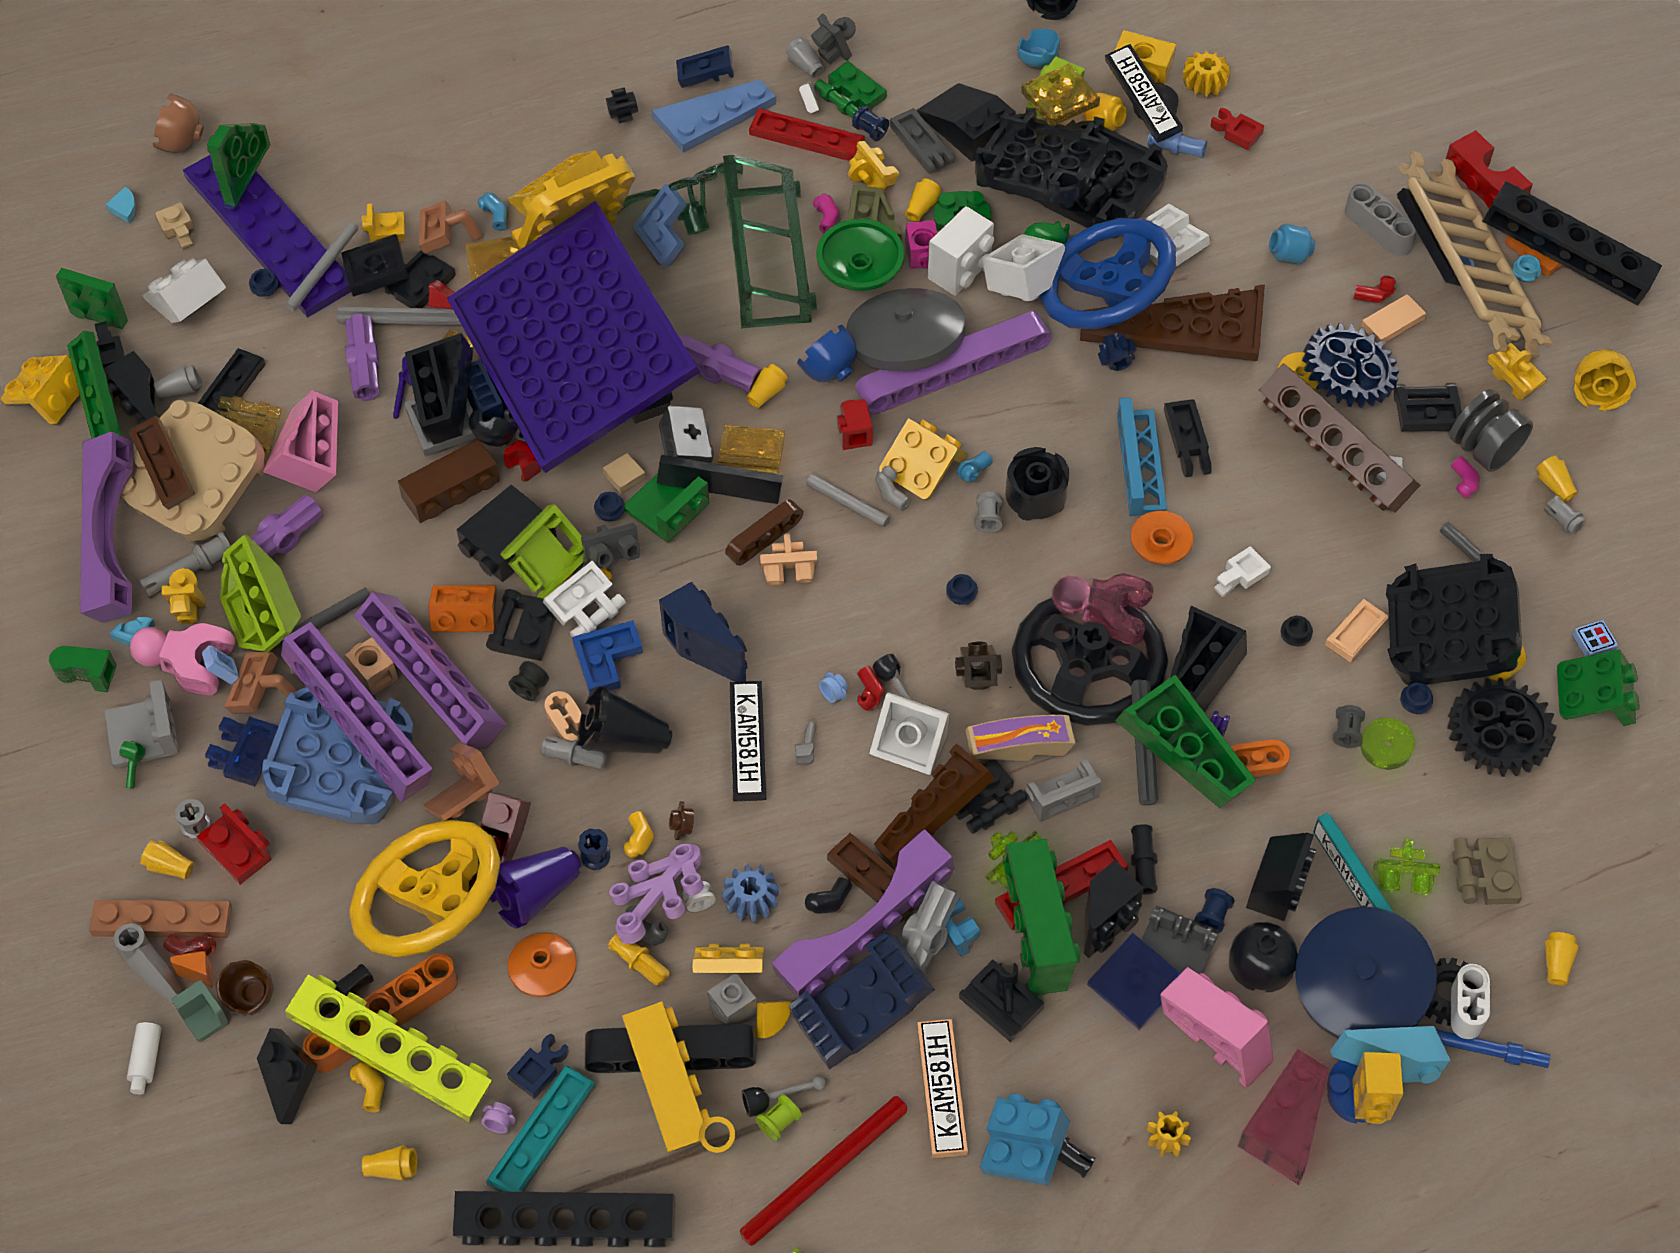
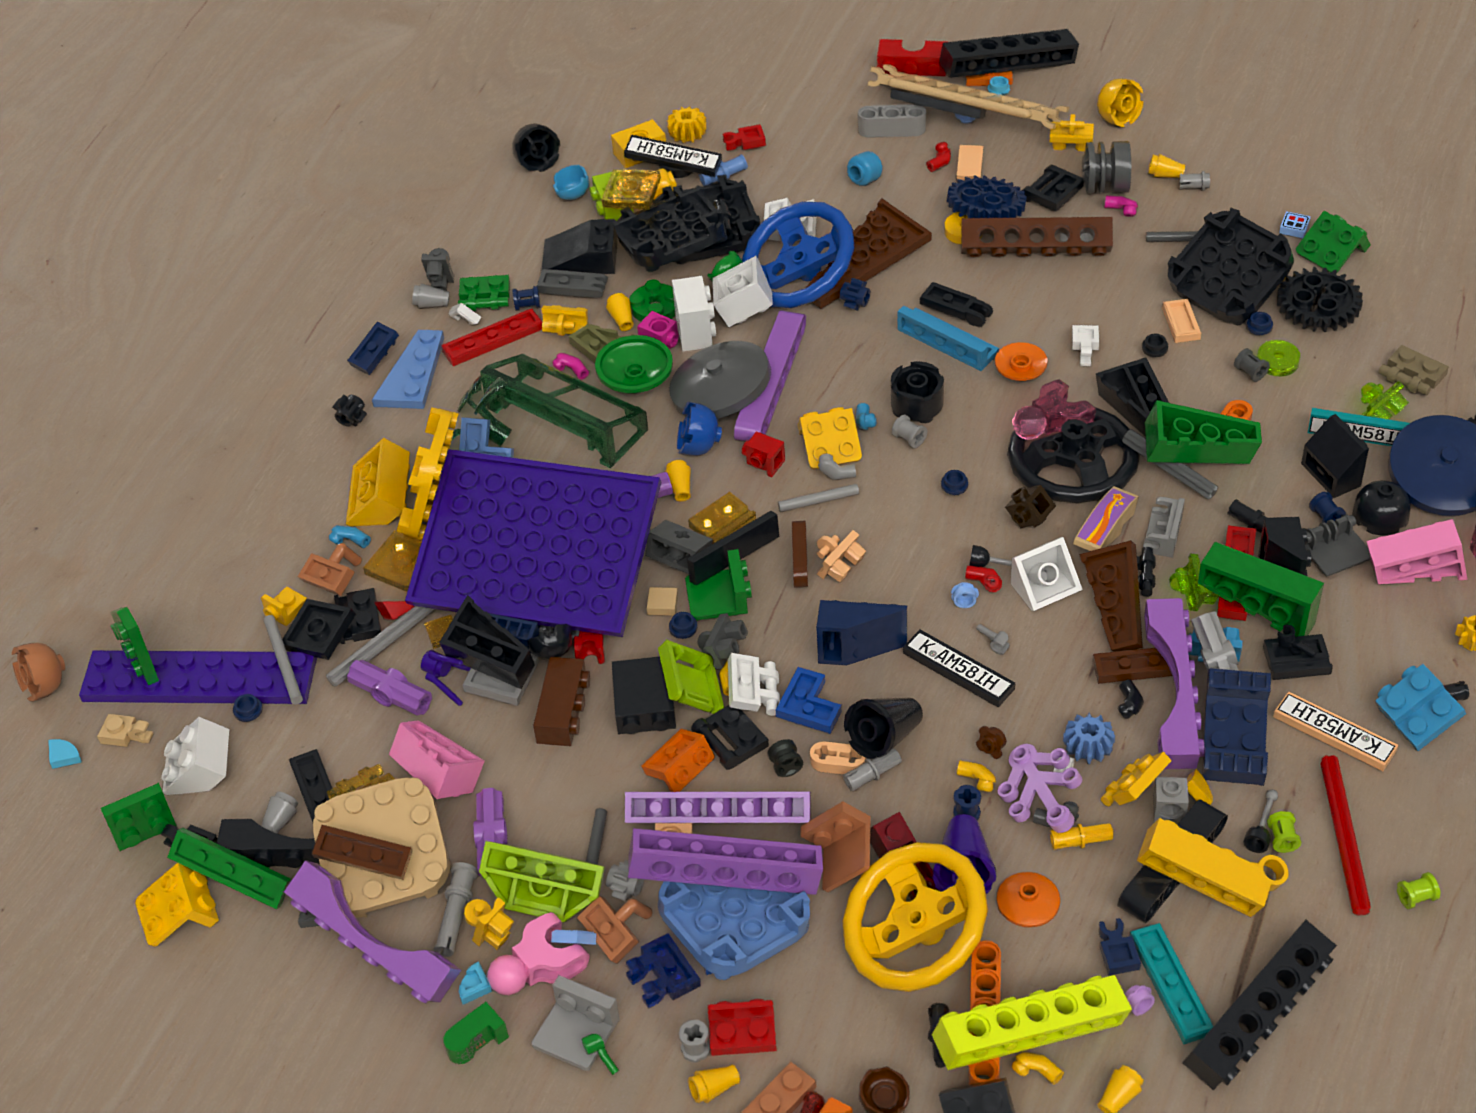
camera: 45 degrees left, 10 degrees down
(1134, 980) = (1346, 580): clear blue plate -> none

